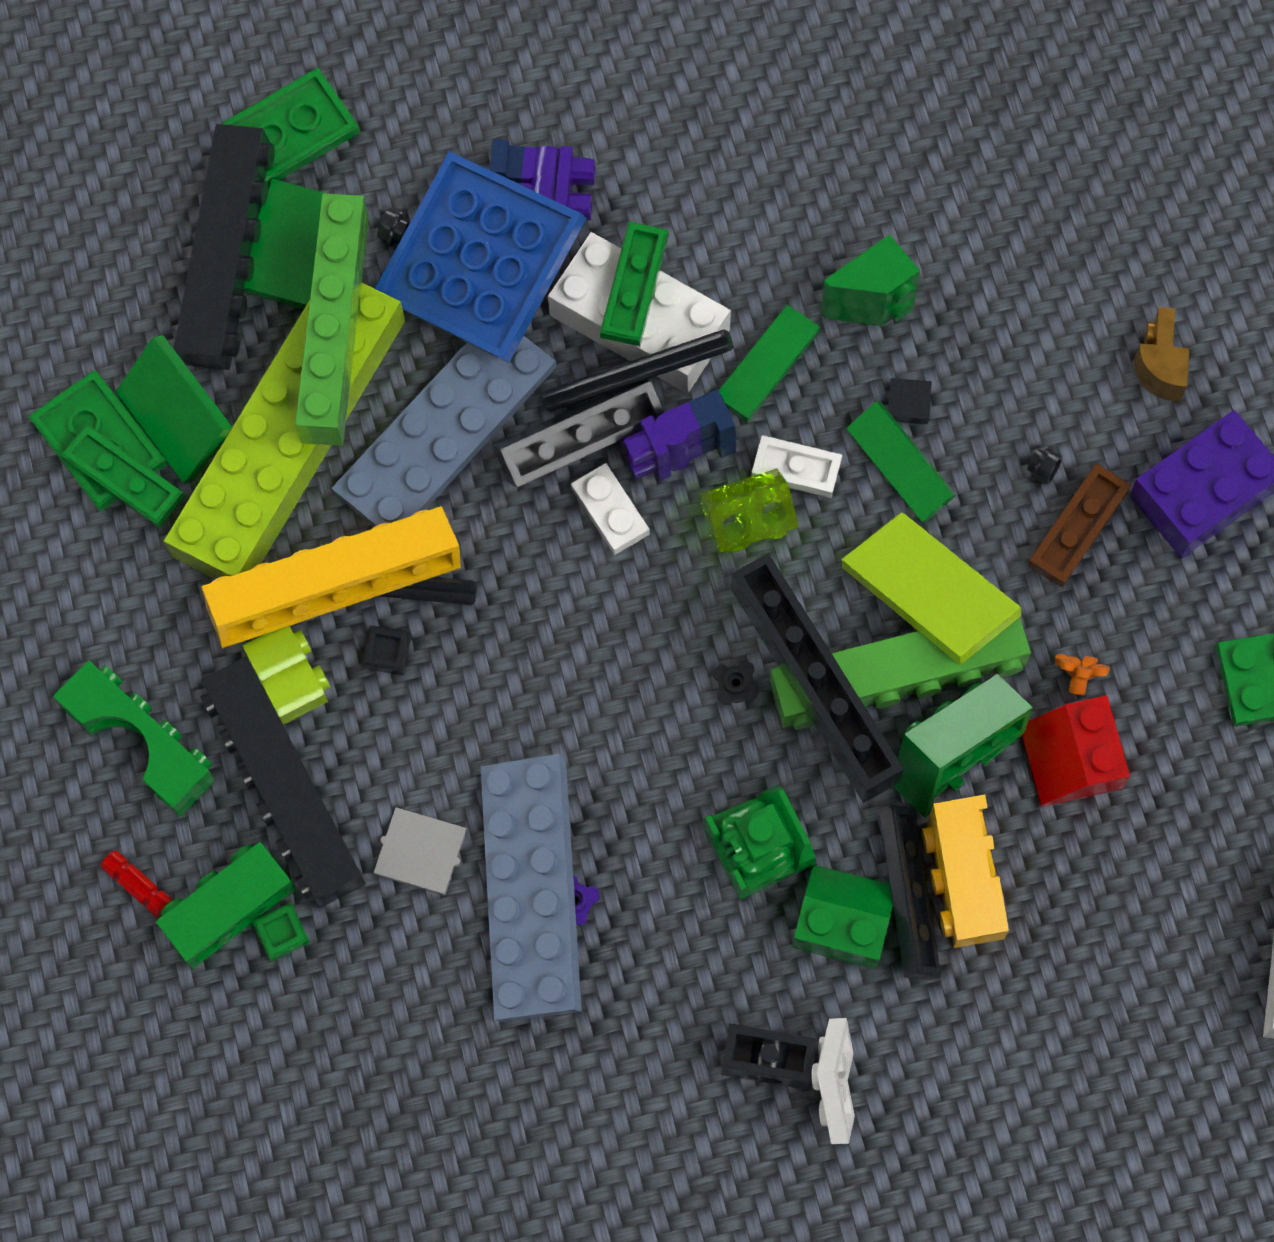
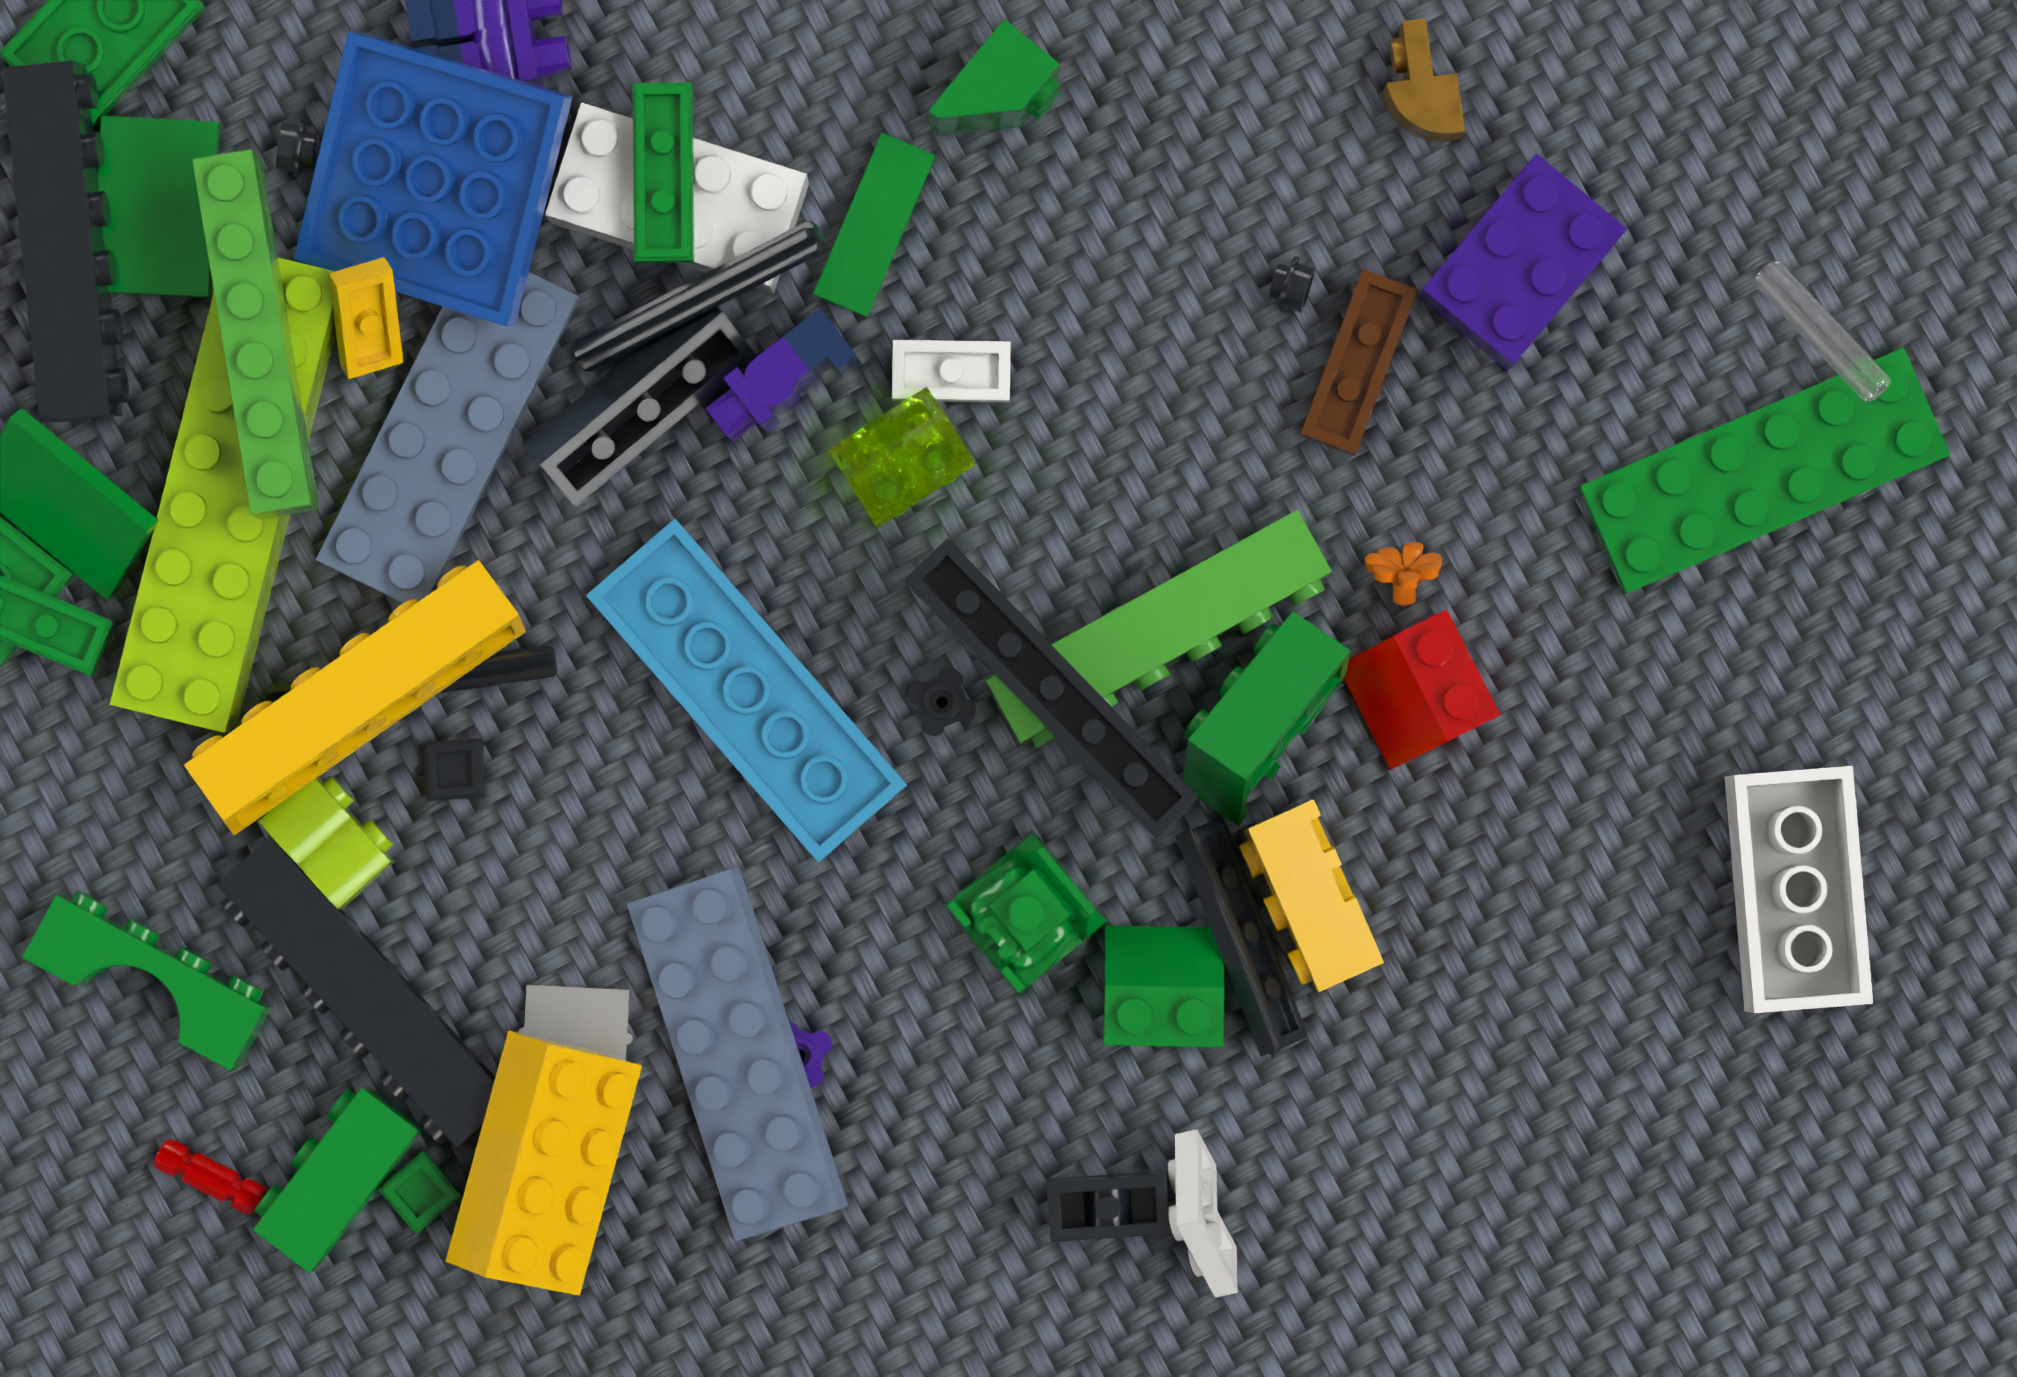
camera: 20 degrees left, 15 degrees up
(373, 924) = (543, 1163): none -> yellow brick
(409, 336) = (366, 318): none -> yellow plate
(603, 644) = (746, 690): none -> dark azure plate
(610, 509) = (708, 492): white plate -> none
(901, 461) = (1093, 329): green tile -> none
(910, 400) = (1085, 233): black tile -> none
(931, 588) = (1176, 510): lime tile -> none

